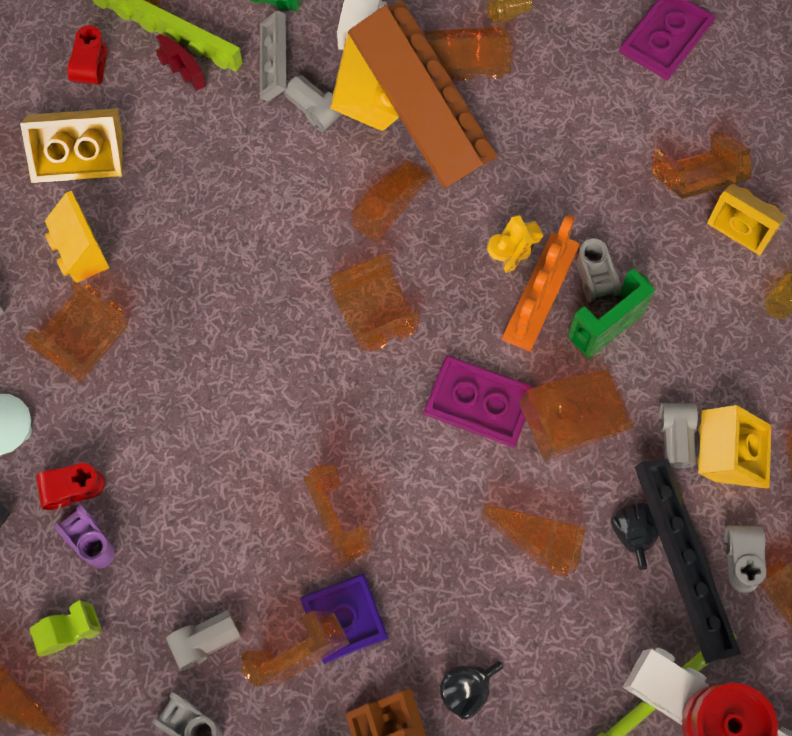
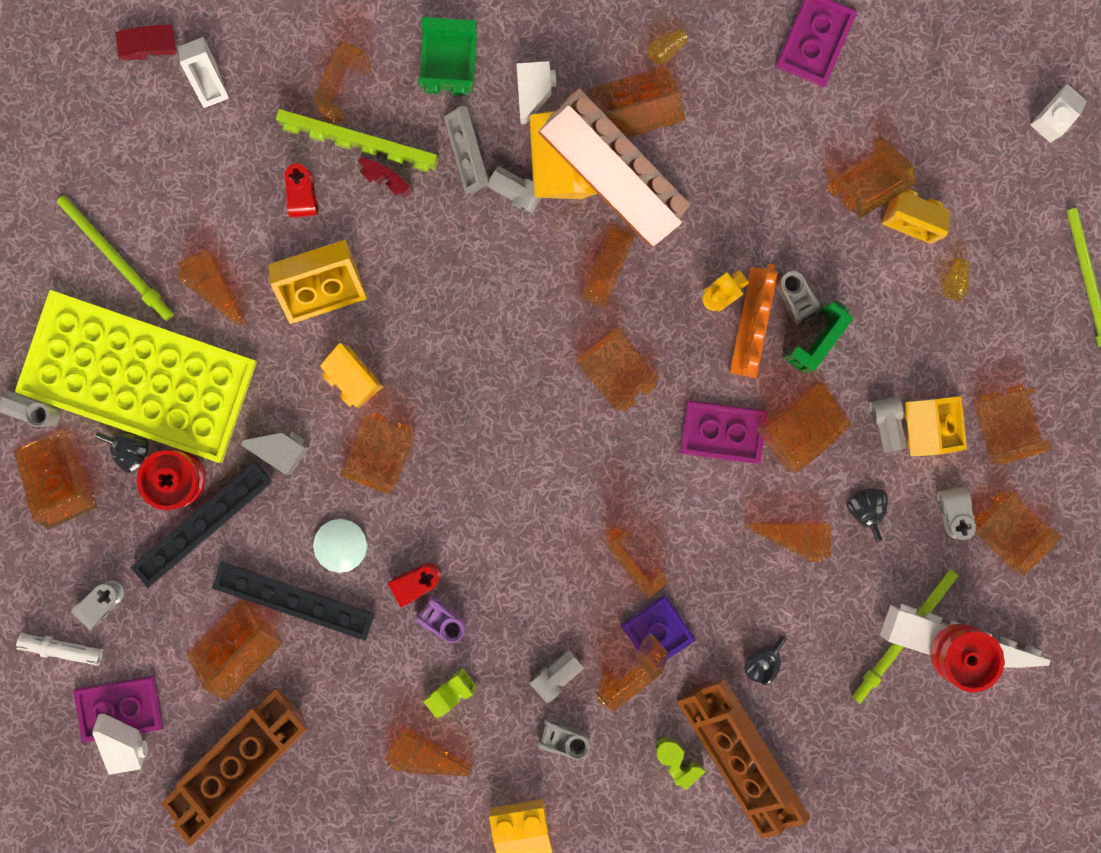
camera: 15 degrees left, 20 degrees up
(687, 561) = (912, 528): black plate -> none

